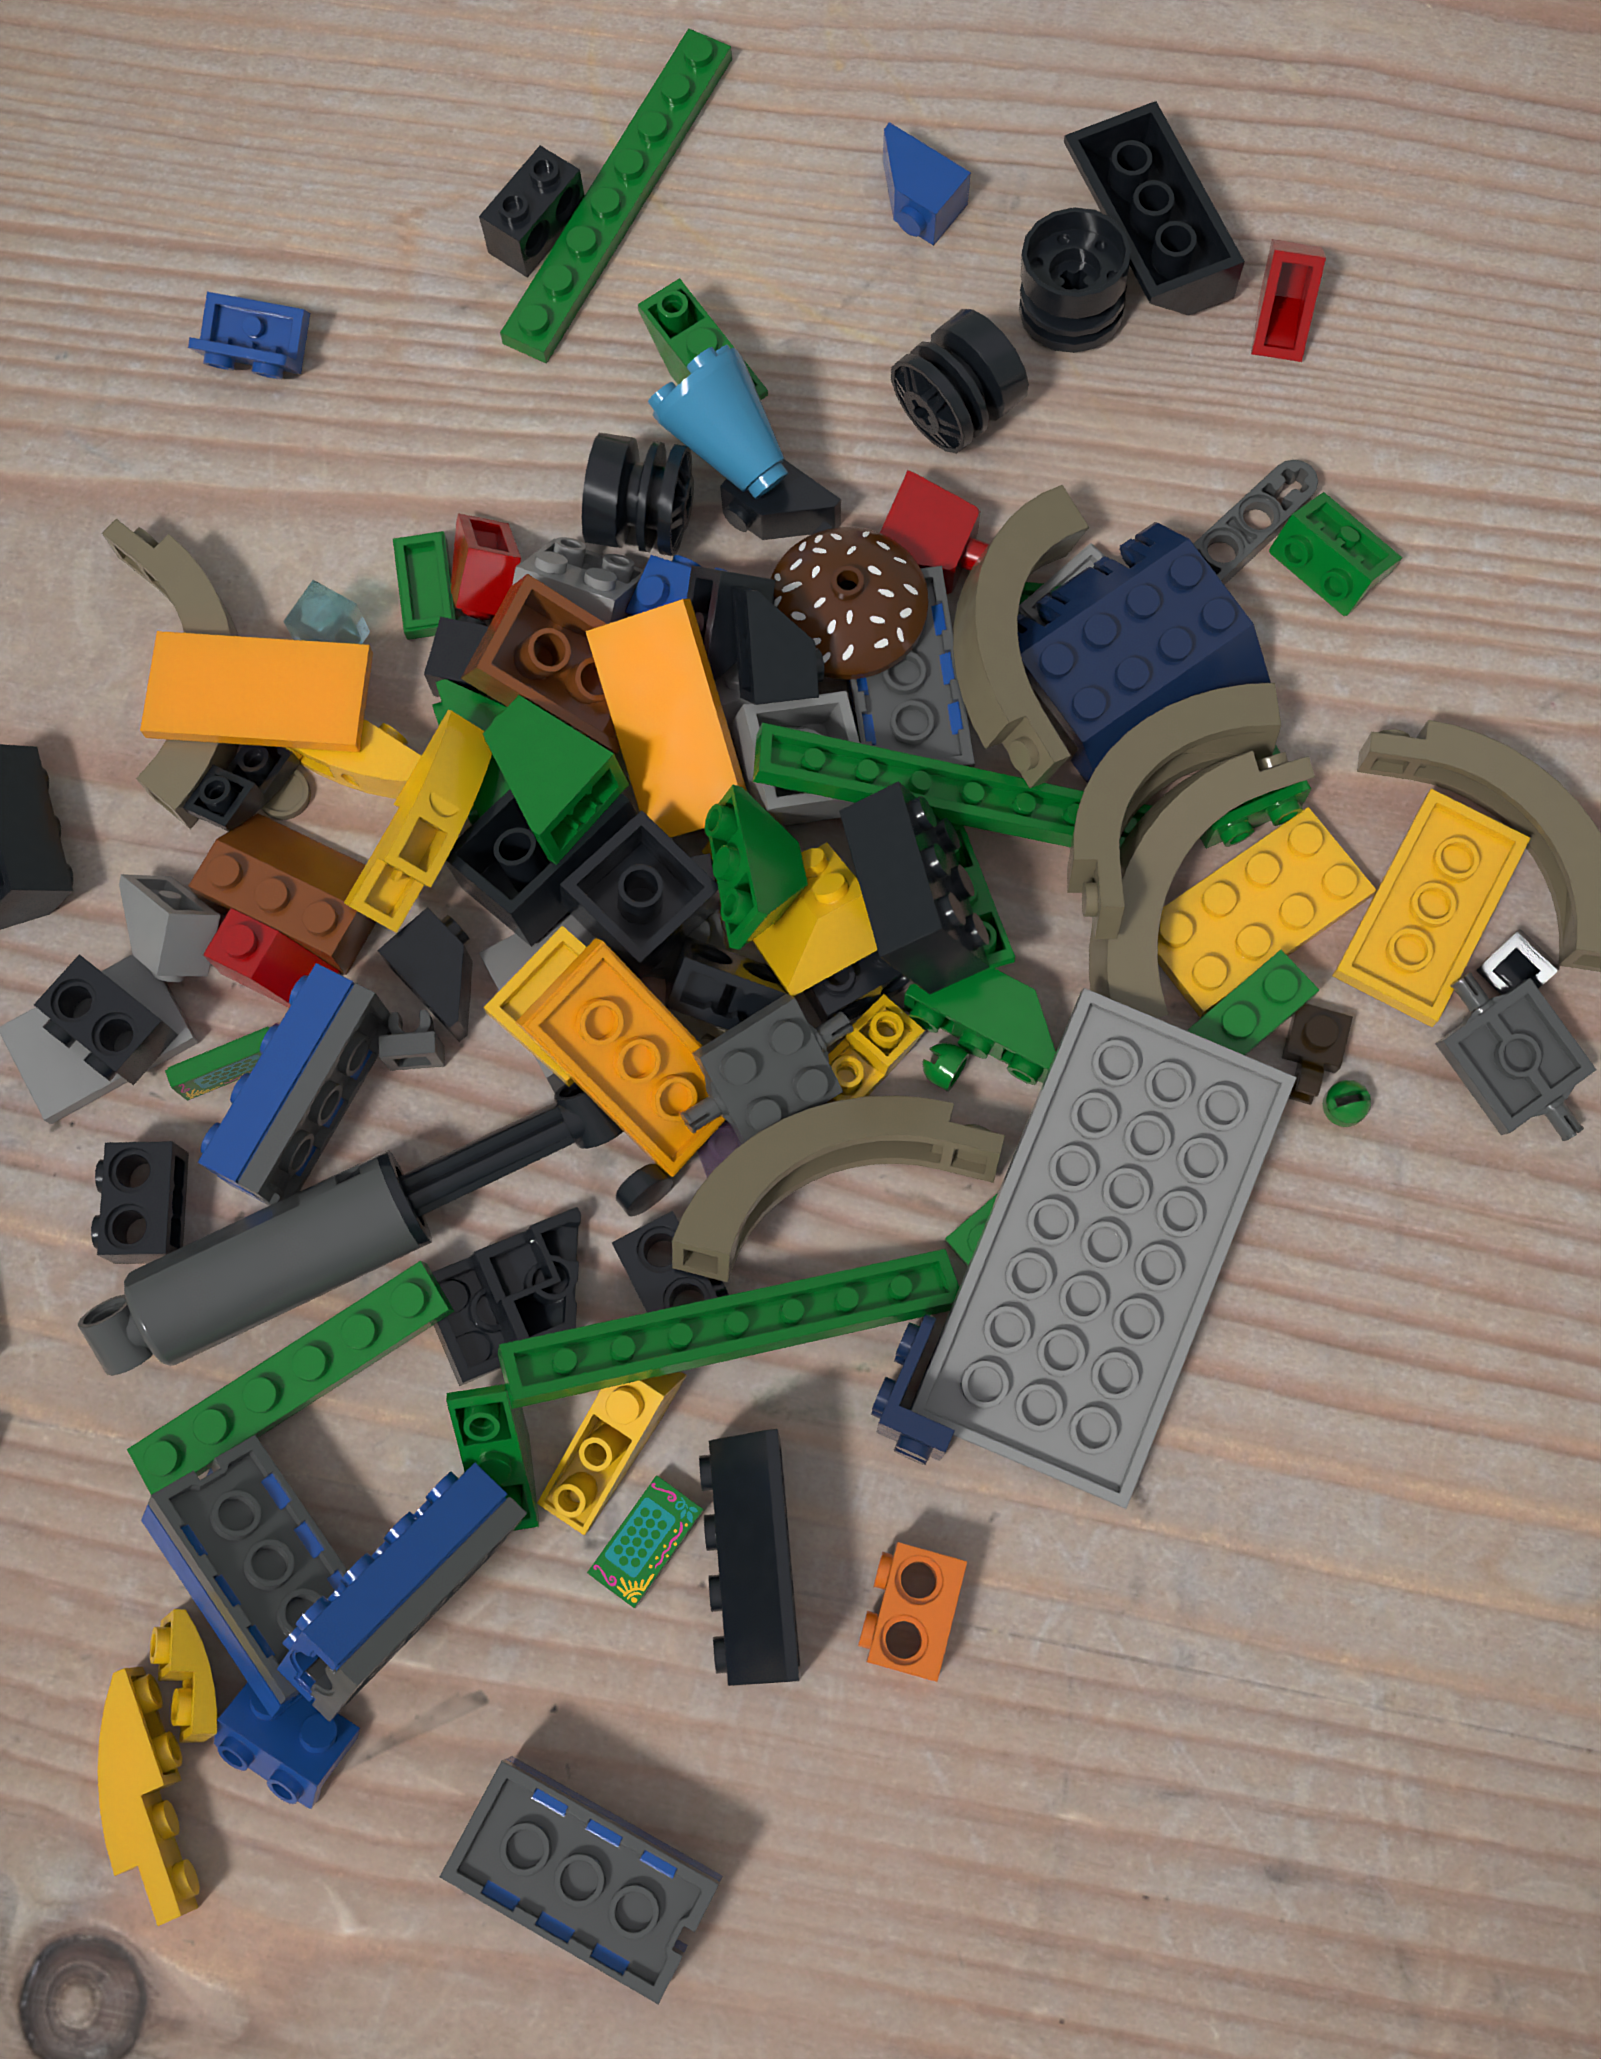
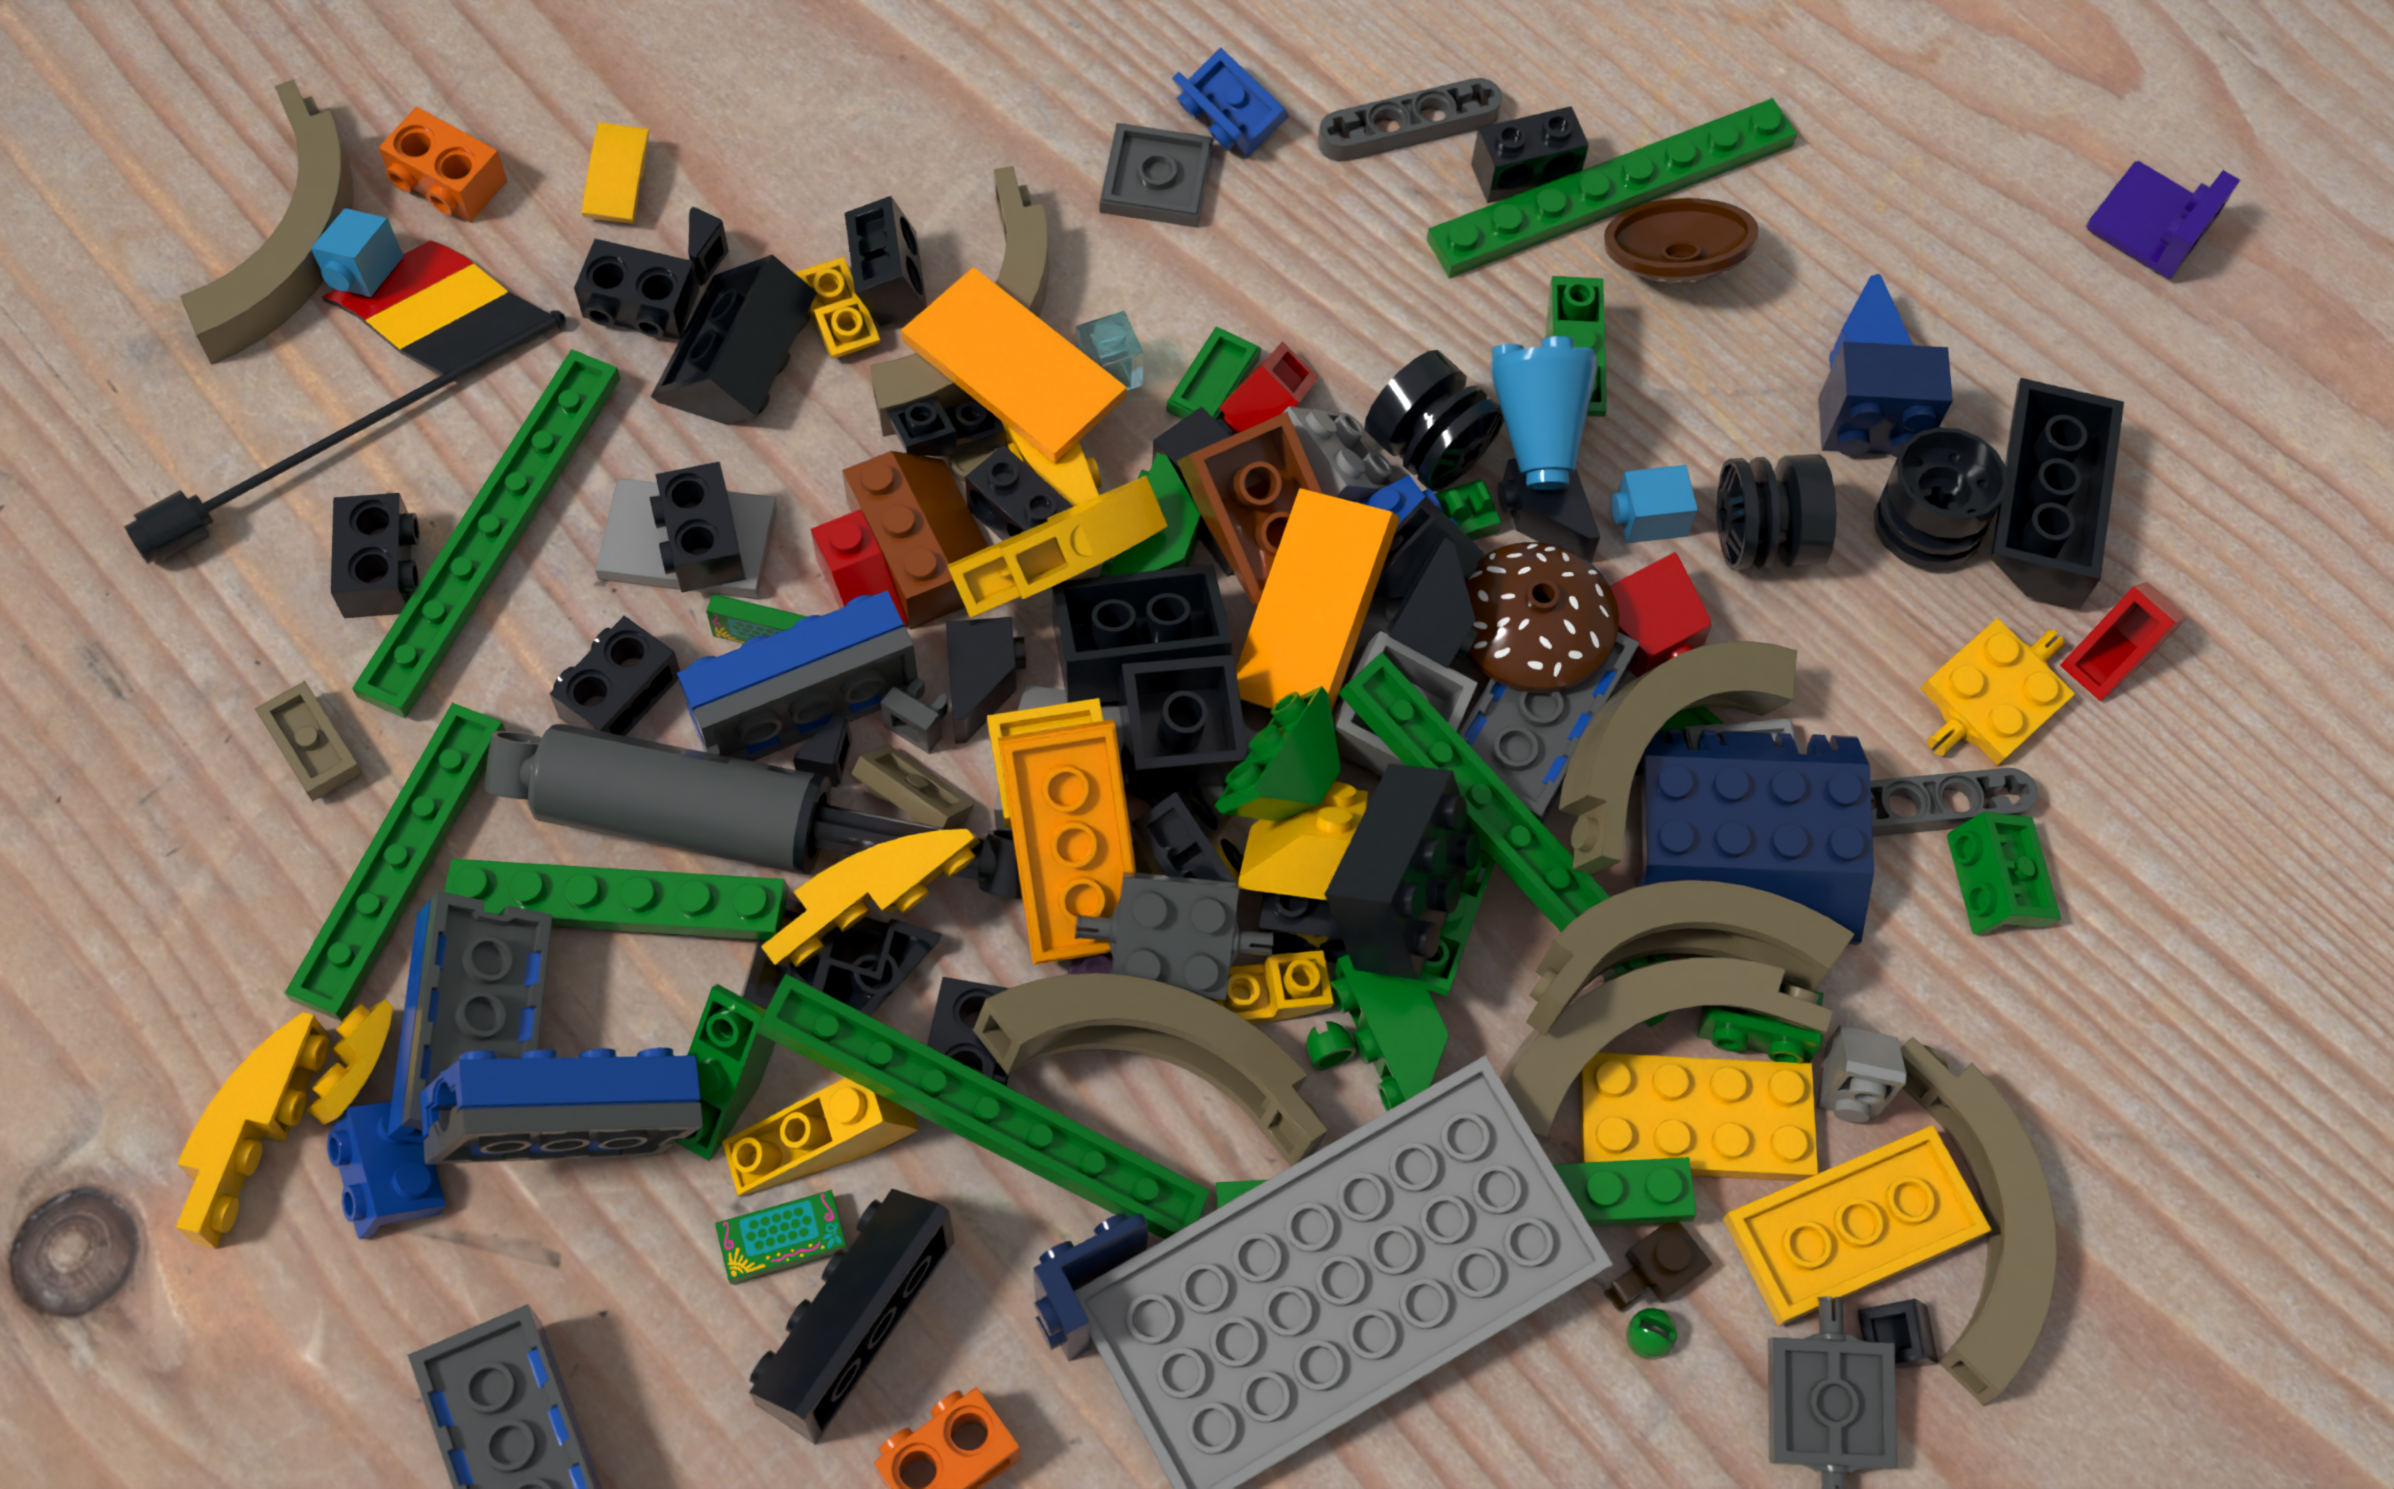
camera: 30 degrees right, 10 degrees down
(65, 747) = (837, 310): none -> yellow slope
(73, 678) = (885, 261): none -> black brick
(81, 1488) = (394, 864): none -> green plate
(167, 926) = (803, 491): light grey slope -> none
(238, 441) = (1156, 175): none -> dark grey tile
(347, 805) = (1010, 495): none -> black brick
(365, 1130) = (826, 750): none -> black slope
(403, 244) = (1406, 112): none -> dark grey beam
(458, 1107) = (911, 788): none -> dark tan plate
(507, 1196) = (888, 873): none -> yellow slope
(554, 774) = (1184, 580): green slope -> none
(643, 1189) = (1003, 960): black tile -> none
(712, 200) = (1681, 239): none -> reddish brown dish
(717, 546) = (1471, 509): none -> green tile
(857, 440) = (1654, 504): none -> dark azure brick
(971, 226) = (1883, 396): none -> dark blue brick
(1223, 409) = (1996, 691): none -> yellow plate
(1354, 787) = (1860, 1073): none -> light grey slope

